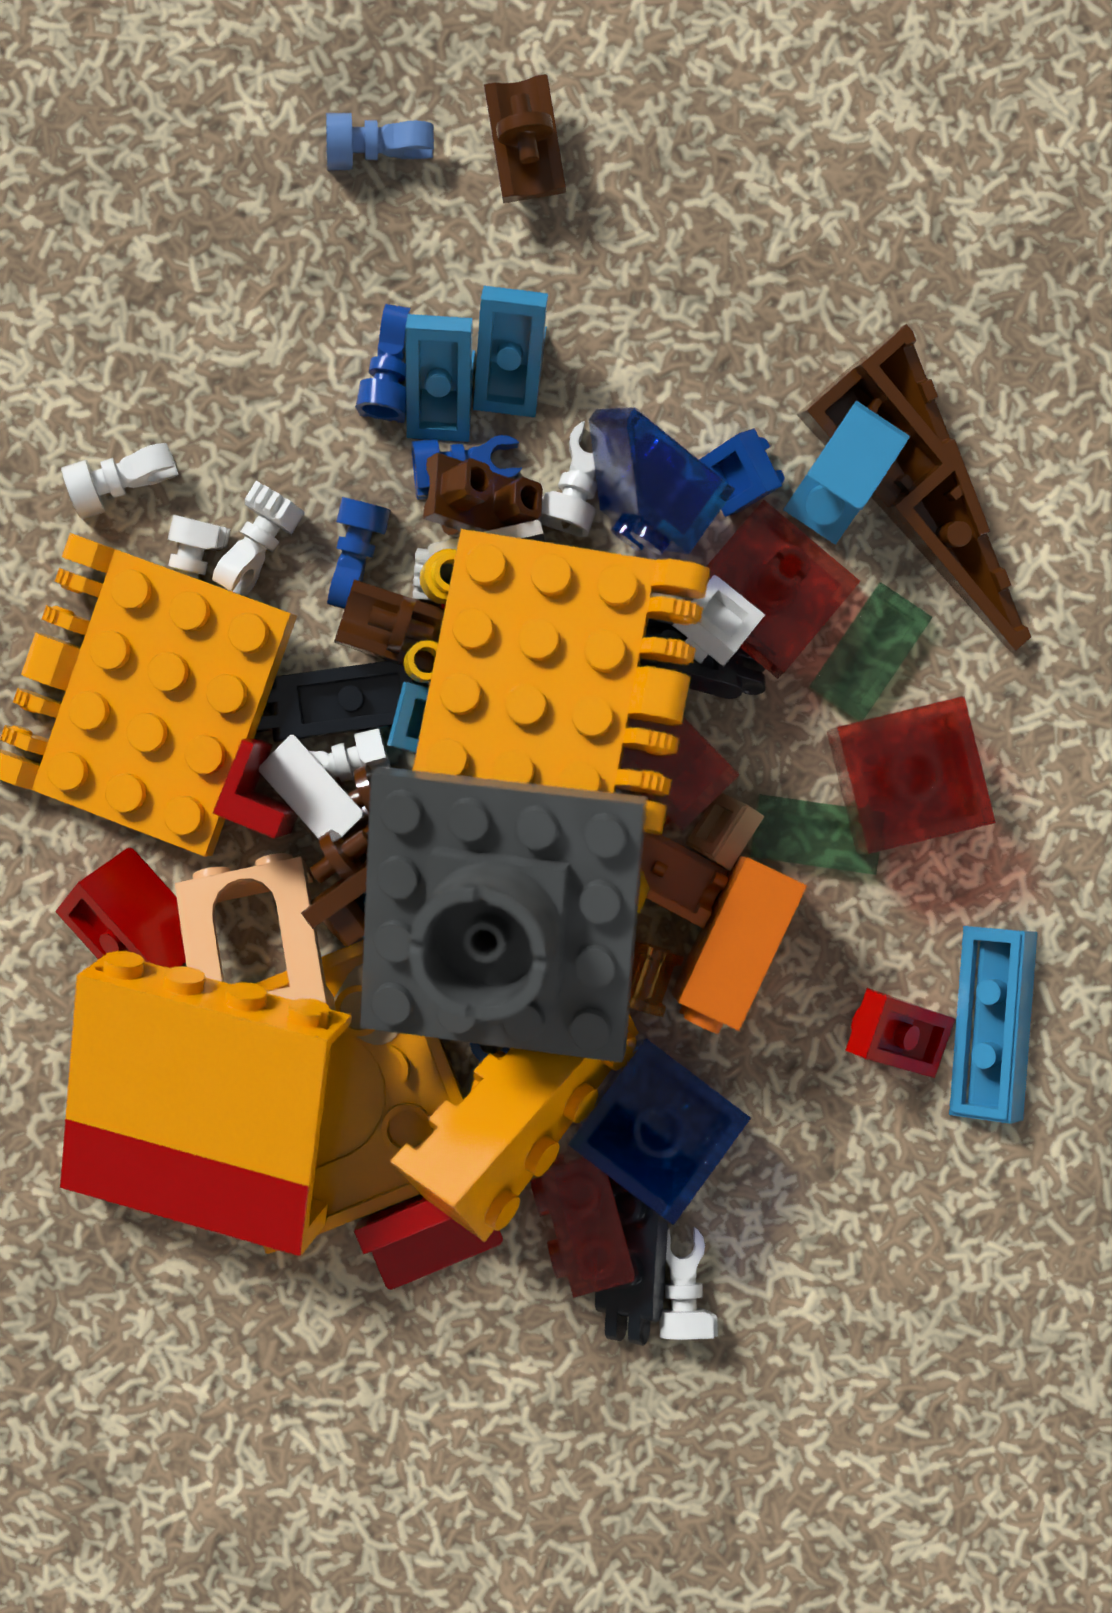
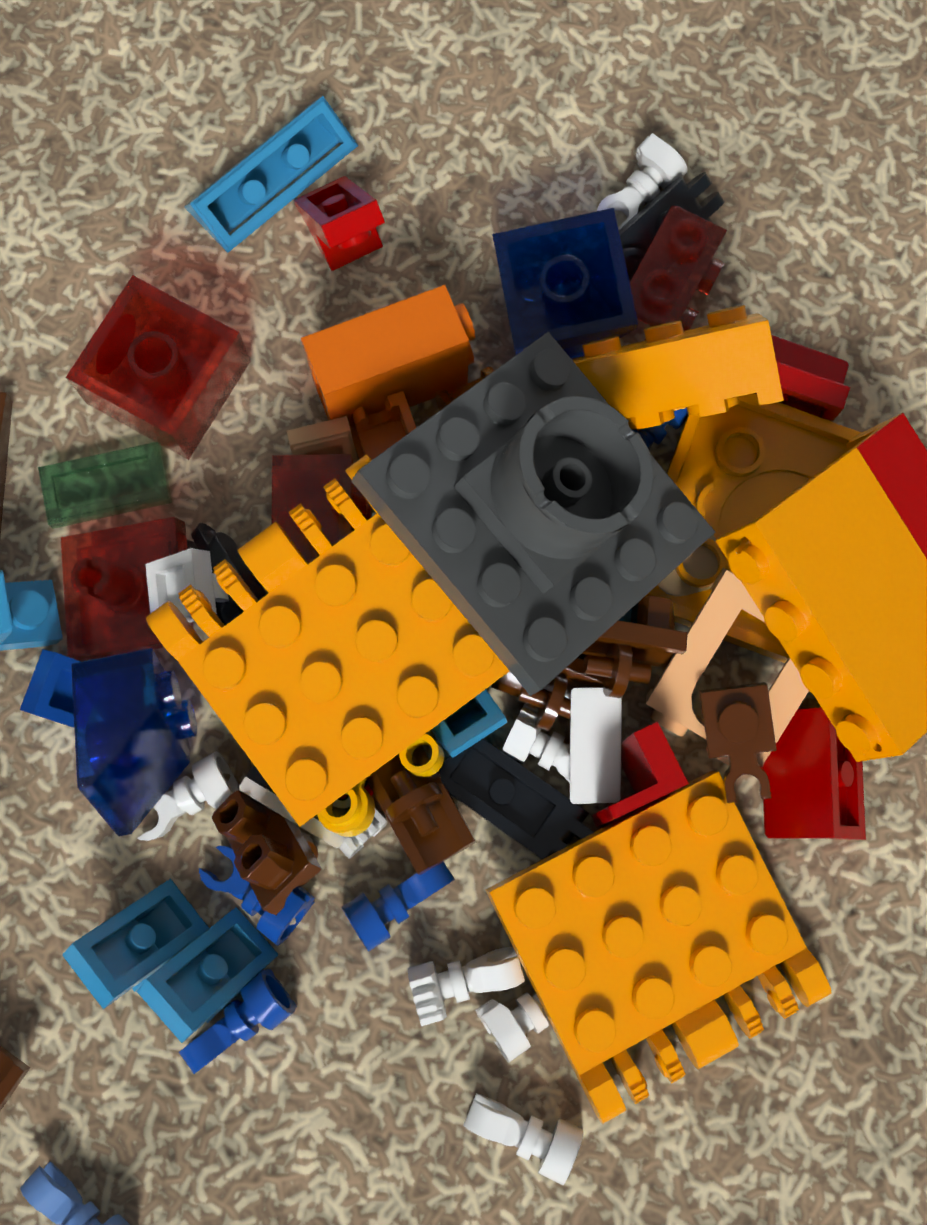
camera: 135 degrees left, 10 degrees down
(213, 896) = (739, 726): none -> reddish brown plate
(808, 835) = (269, 400): clear green tile -> none

